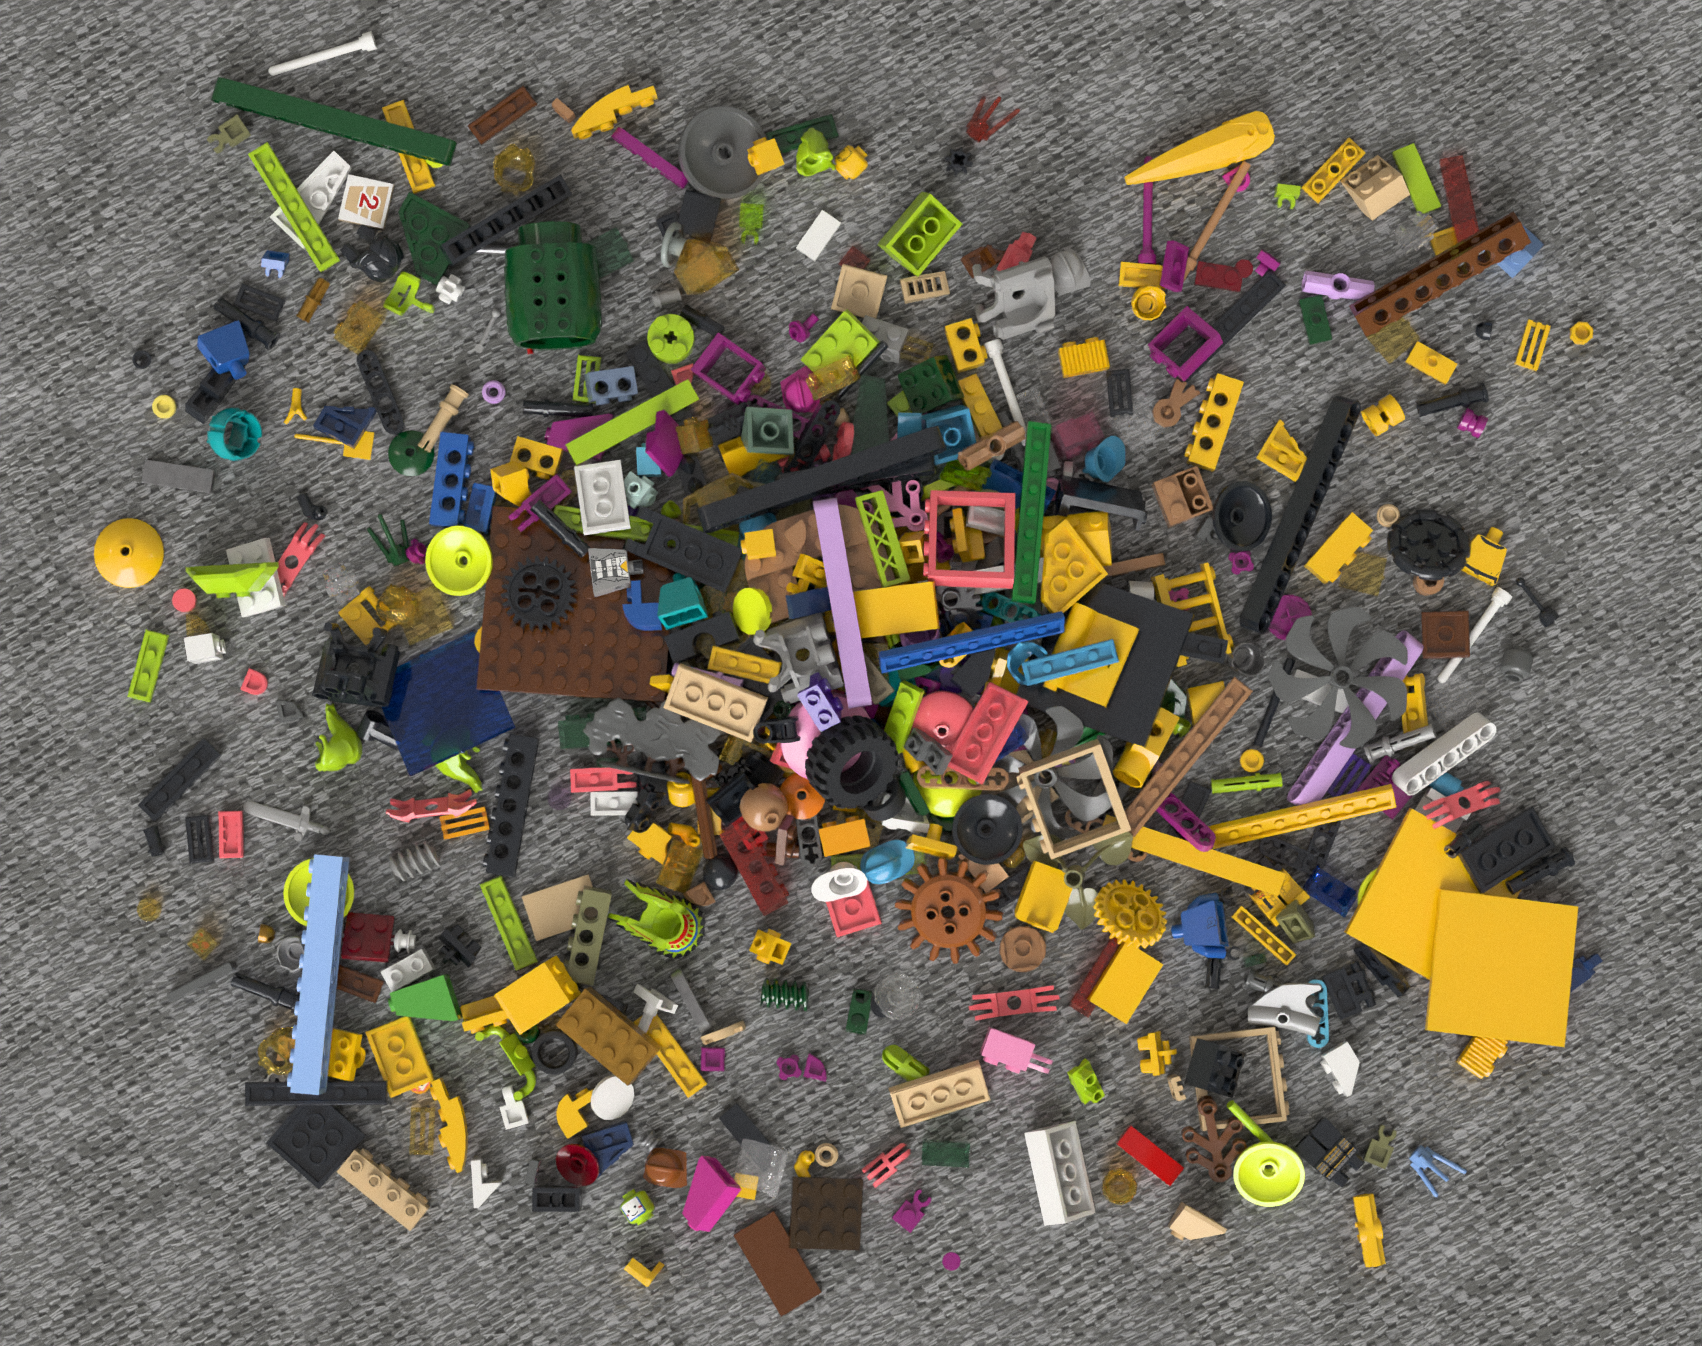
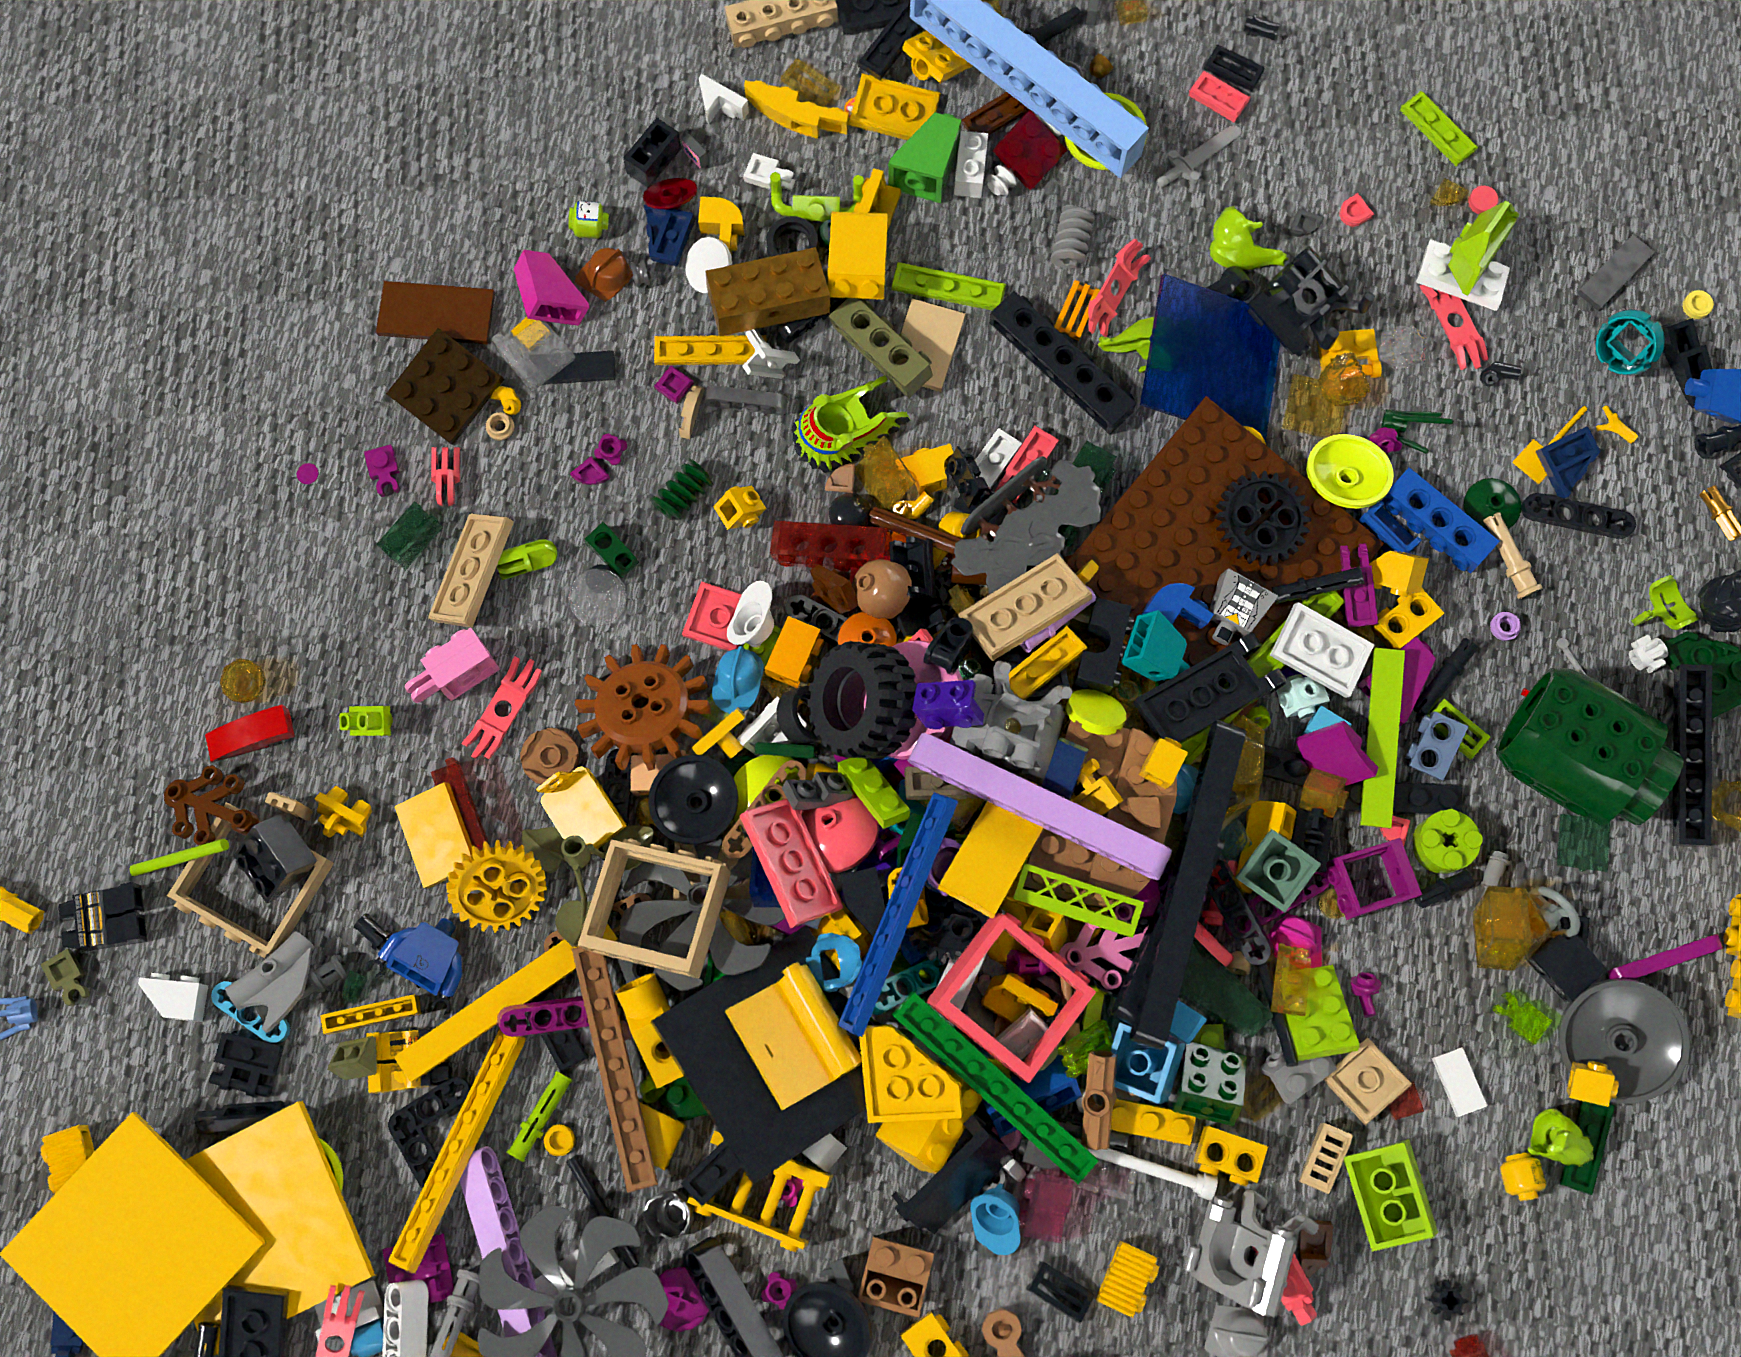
camera: 130 degrees right, 10 degrees down
(143, 559) = (1559, 192): yellow dish -> none
(180, 780) = (1305, 84): black gear -> none
(204, 648) = (1424, 179): white brick -> none
(354, 339) = (1661, 550): clear yellow brick -> none
(453, 947) = (972, 223): black hips -> none
(559, 798) = (1037, 413): clear purple tile -> none
(642, 1273) = (522, 184): yellow tile -> none
(1059, 1173) = (302, 633): white slope -> none
(1070, 662) = (800, 1006): dark azure tile -> none
(1135, 565) = (858, 1165): medium nougat beam -> none
(1193, 1224) = (144, 729): tan slope -> none
(1271, 1185) = (131, 838): neon yellow dish -> none
(1330, 891) = (358, 1120): clear blue hinge -> none
(1359, 762) = (469, 1259): dark purple tile -> none
(1463, 839) = (295, 1310): black axle -> none

